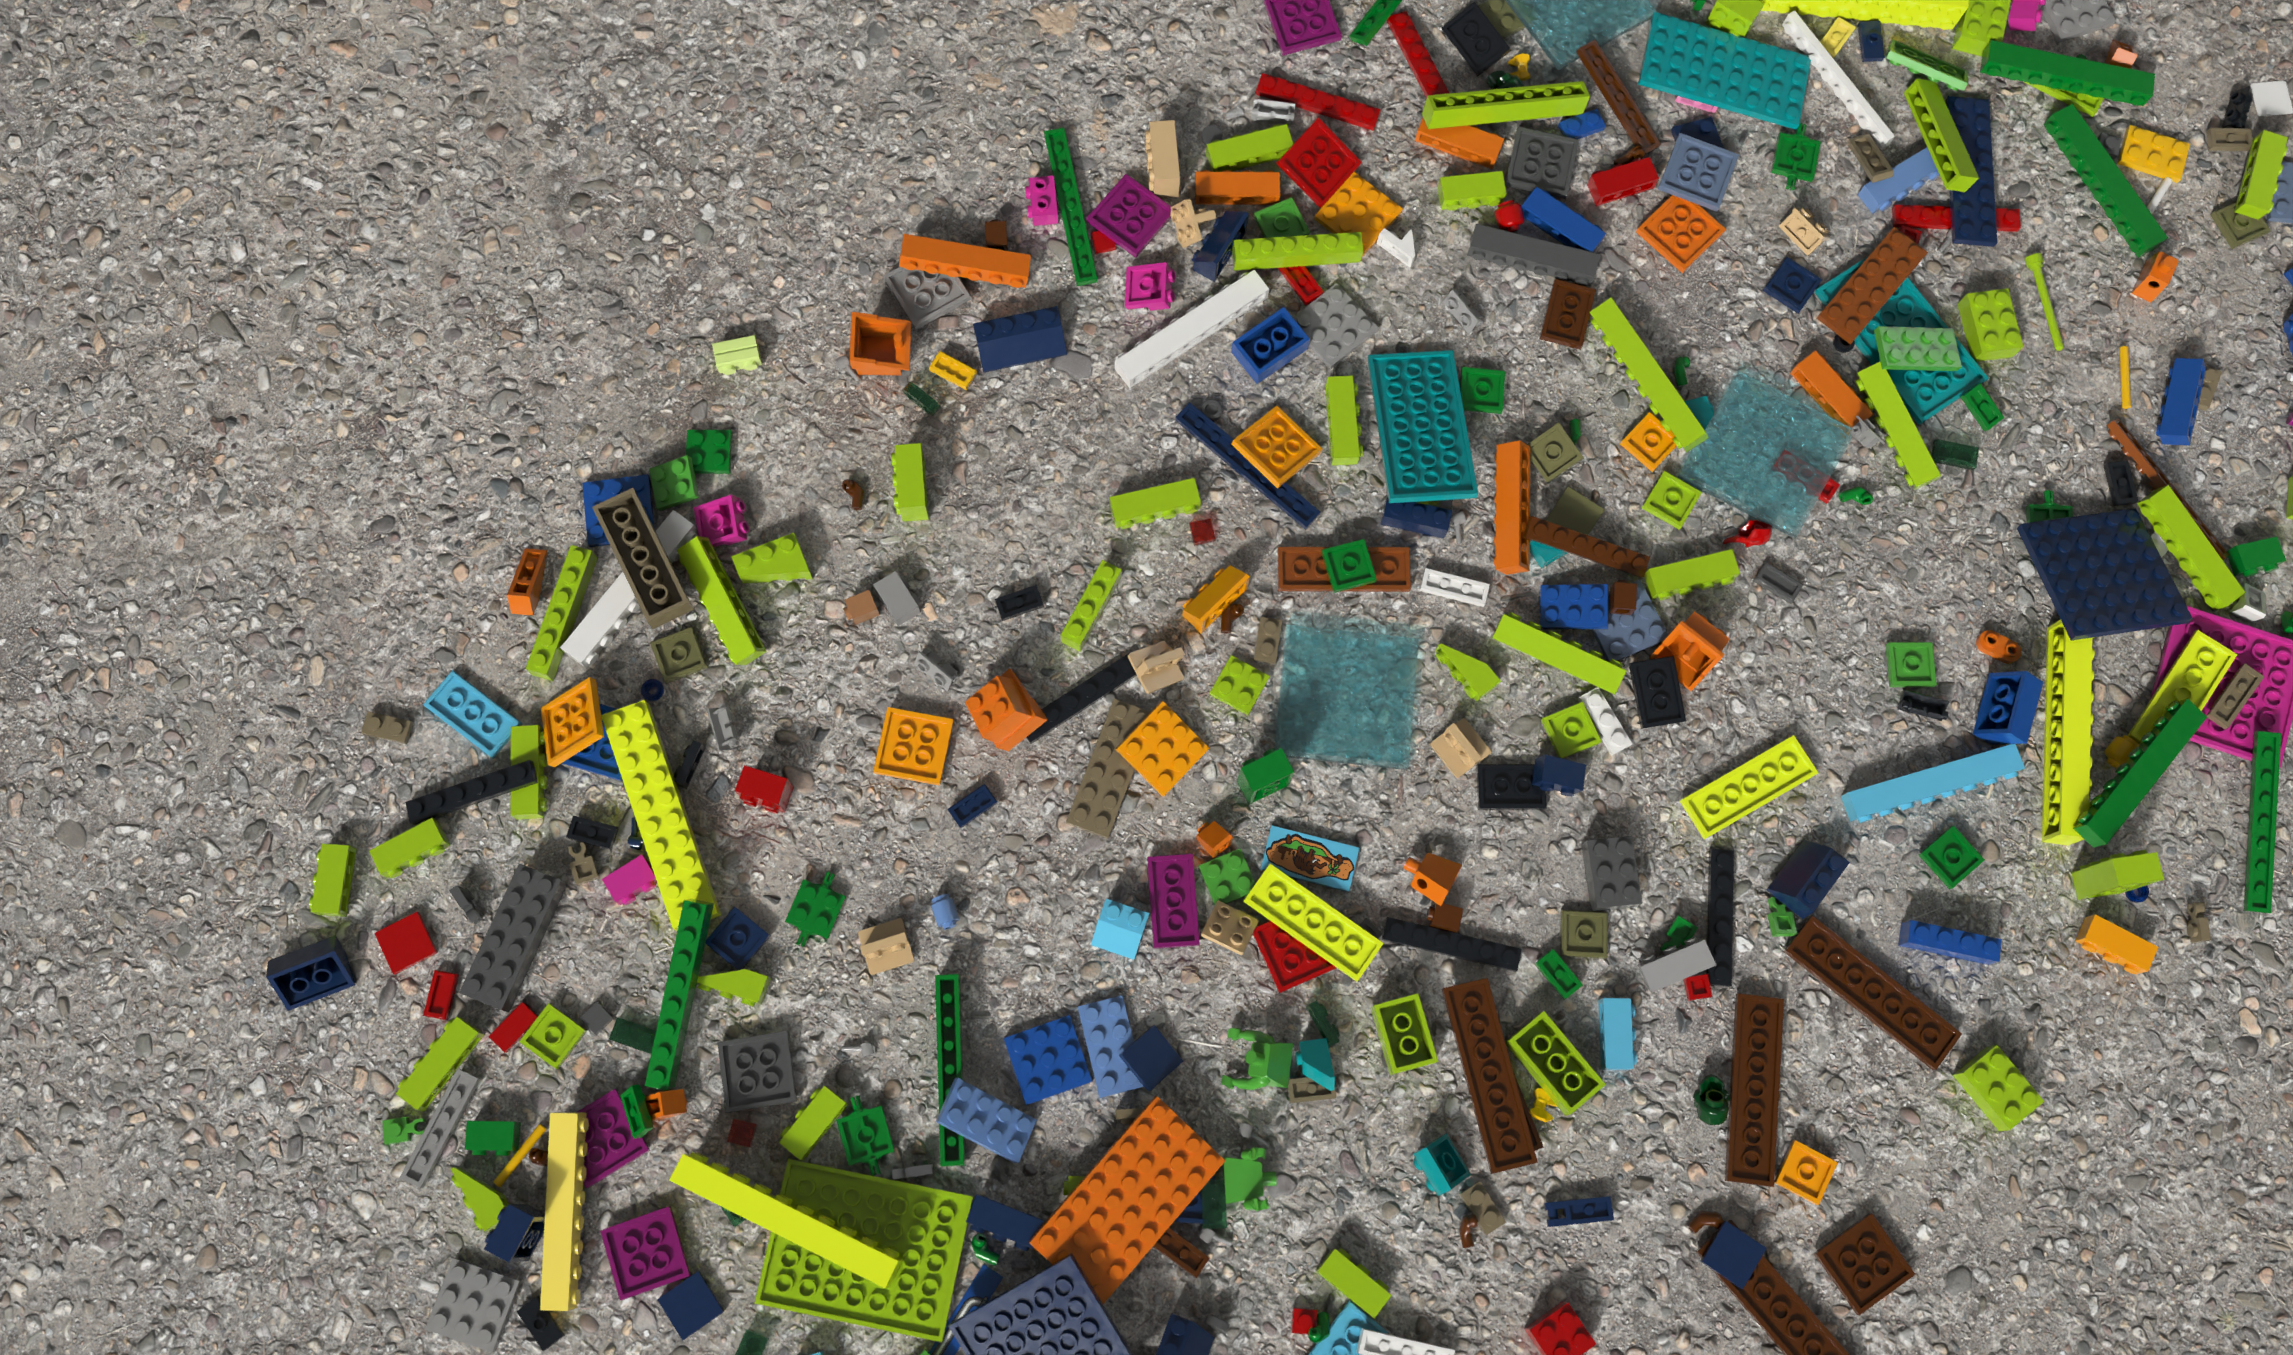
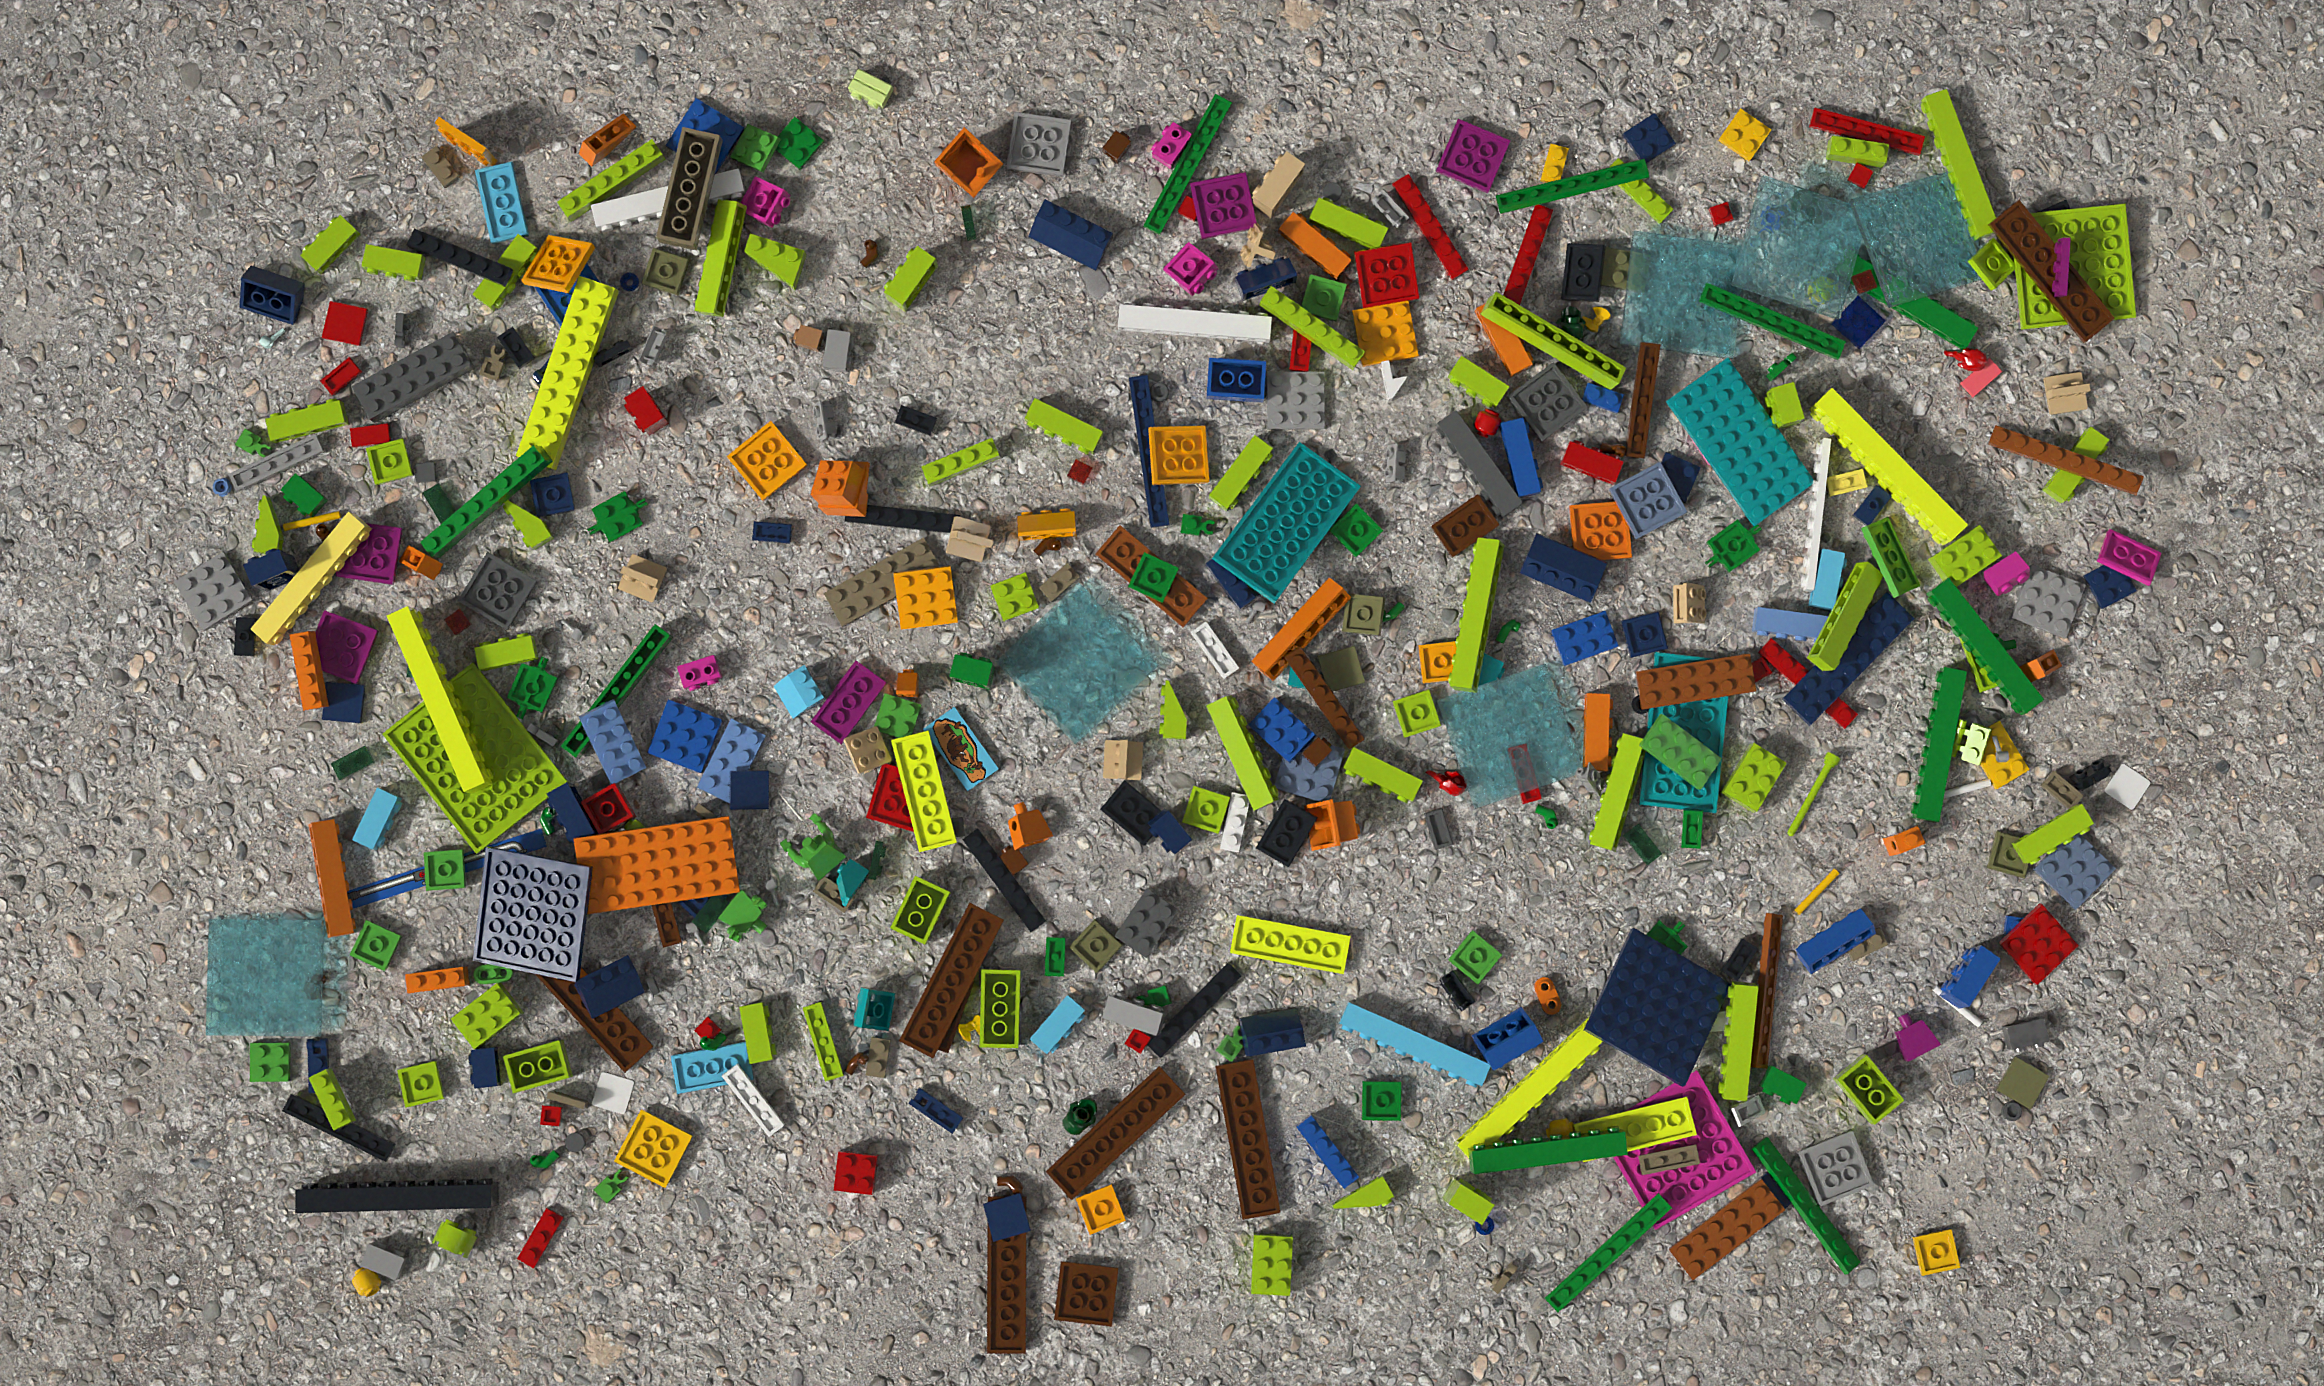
camera: 45 degrees right, 10 degrees up
(342, 1020) = (268, 342): none -> light aqua hand
(394, 681) = (465, 142): none -> light orange plate
(397, 1193) = (222, 482): none -> medium blue plate
(631, 880) = (514, 400): dark pink brick -> none
(632, 1301) = (309, 670): none -> orange brick
(636, 1111) = (402, 554): green plate -> none
(944, 911) = (697, 587): medium blue brick -> none
(953, 370) = (1007, 219): yellow plate -> none
(964, 261) = (1077, 147): orange brick -> none
(1013, 988) = (699, 673): none -> dark pink brick
(1035, 1188) = (608, 809): none -> red brick
(1341, 498) = (1192, 525): none -> green plate
(1421, 1237) = (823, 1041): none -> lime plate
(1681, 280) = (1563, 567): none -> dark blue slope
(1748, 326) = (1584, 638): none -> blue plate
(1870, 158) = (1781, 591): dark tan plate -> none
(1899, 122) = (1828, 579): none -> medium azure brick
(2020, 948) = (1369, 1195): none -> lime slope
(2116, 944) = (1435, 1245): light orange brick -> none
(2133, 154) = (1976, 742): none -> plate
(2160, 148) = (2001, 756): none -> light grey hand

